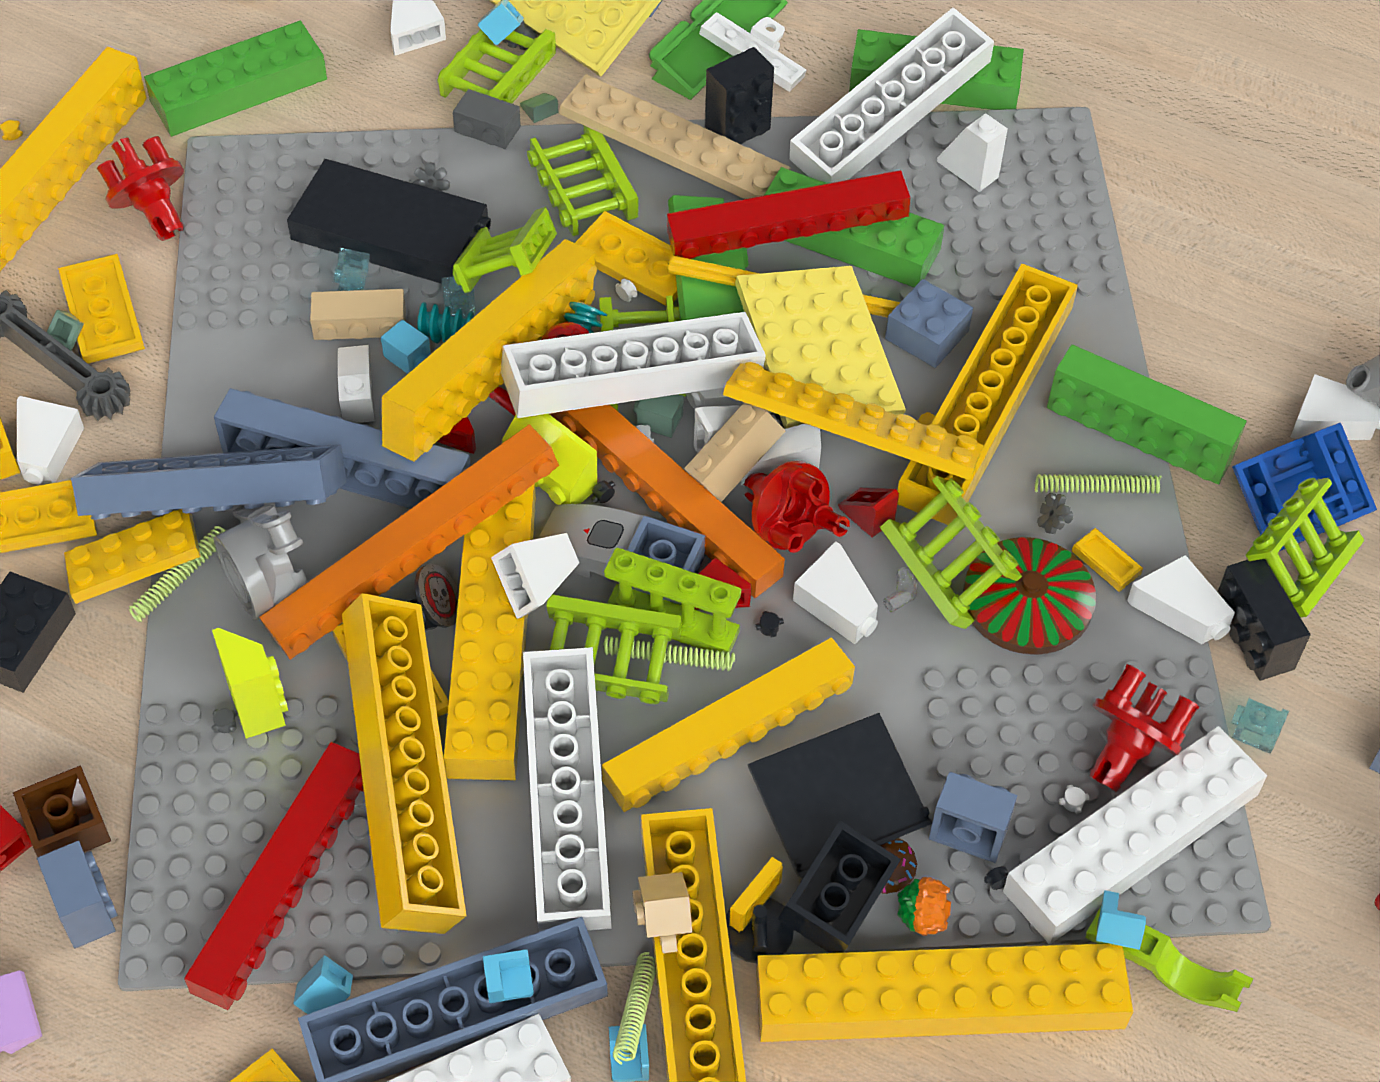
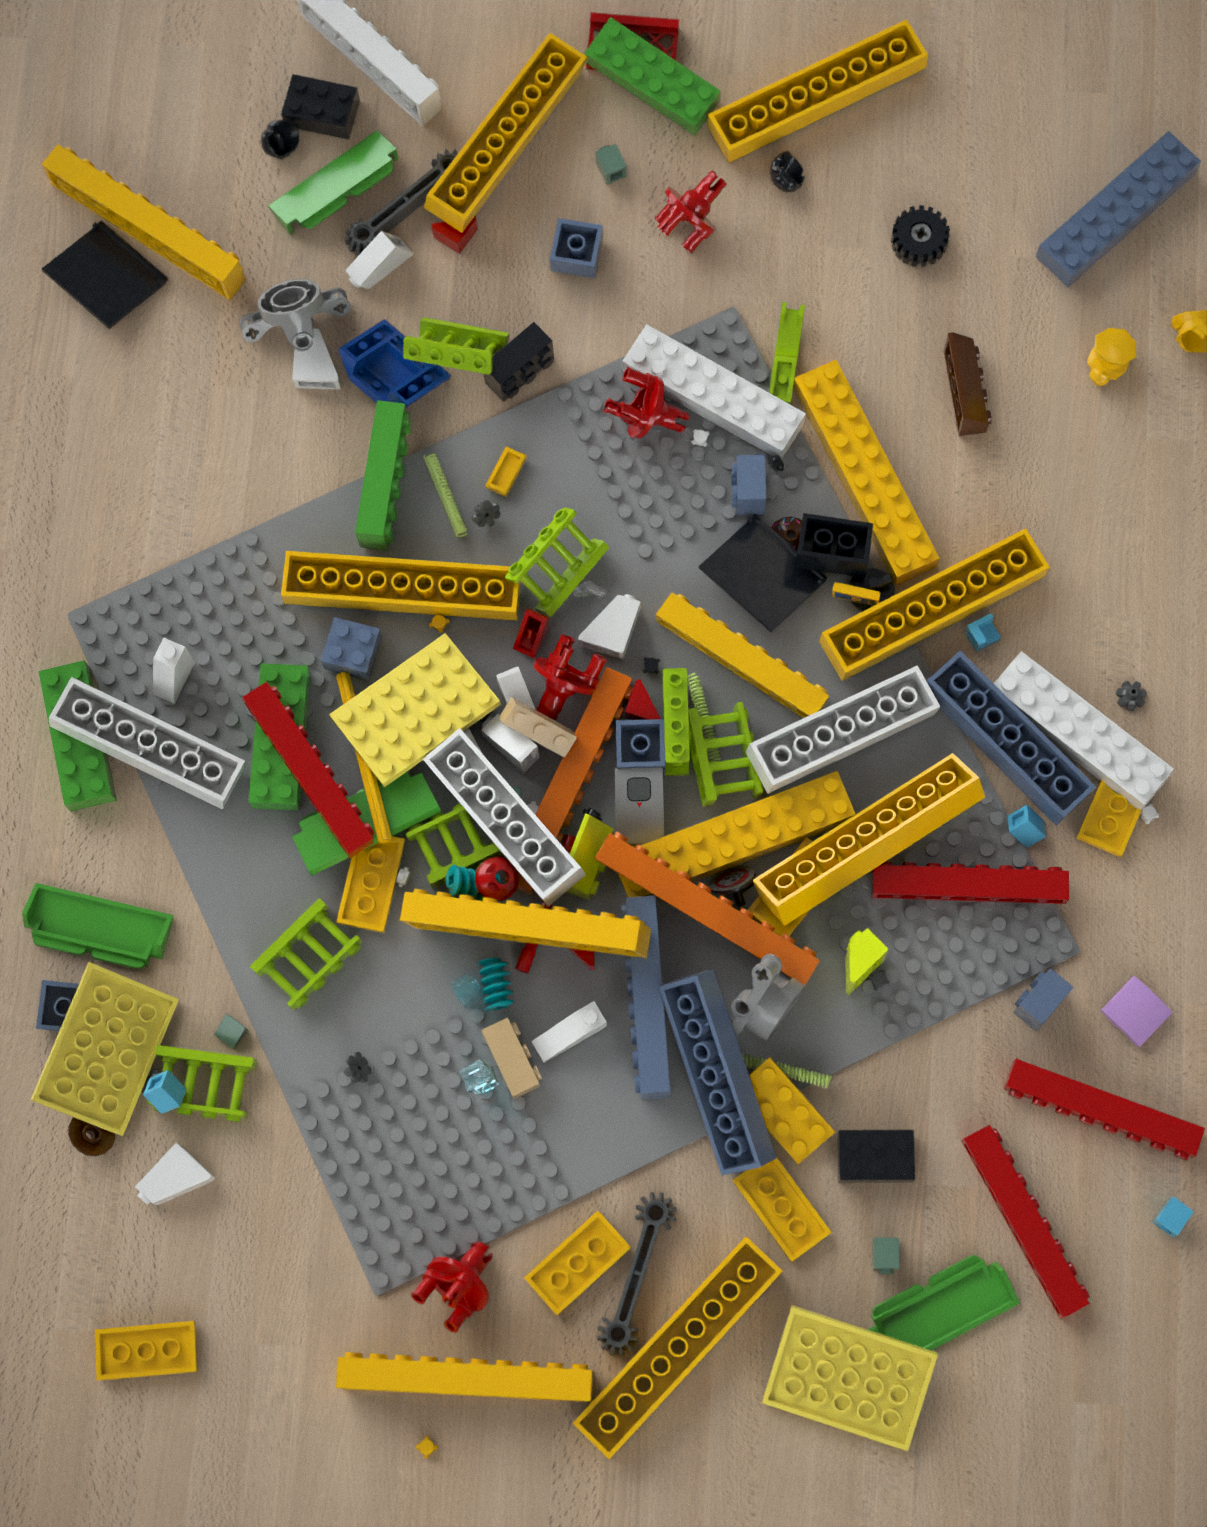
camera: 105 degrees left, 20 degrees up
(45, 438) = (714, 1232): white slope -> none
(61, 813) = (995, 1042): reddish brown slope -> none
(65, 328) = (612, 1274): sand green slope -> none
(235, 78) = (302, 1286): bright green brick -> none
(387, 217) = (411, 1080): black brick -> none
(405, 346) = (527, 1007): medium azure panel -> none
(486, 119) = (274, 1056): dark grey brick -> none
(508, 976) = (986, 704): medium azure panel -> none
(516, 247) = (425, 937): lime fence -> none
(534, 570) = (696, 814): white slope -> none
(631, 1002) = (966, 629): yellowish green piece -> none
(663, 908) = (910, 624): tan brick -> none
(670, 138) = (244, 899): tan plate -> none
(737, 40) = (107, 883): white plate -> none
(739, 96) = (194, 856): black brick -> none
(854, 420) = (491, 650): yellow plate -> none
(924, 906) = (820, 495): orange piece -> none
(1041, 609) = (546, 493): dish -> none
(1119, 926) = (786, 381): medium azure panel -> none
(1183, 601) = (523, 412): white slope -> none
(1258, 725) = (598, 338): clear light blue brick -> none

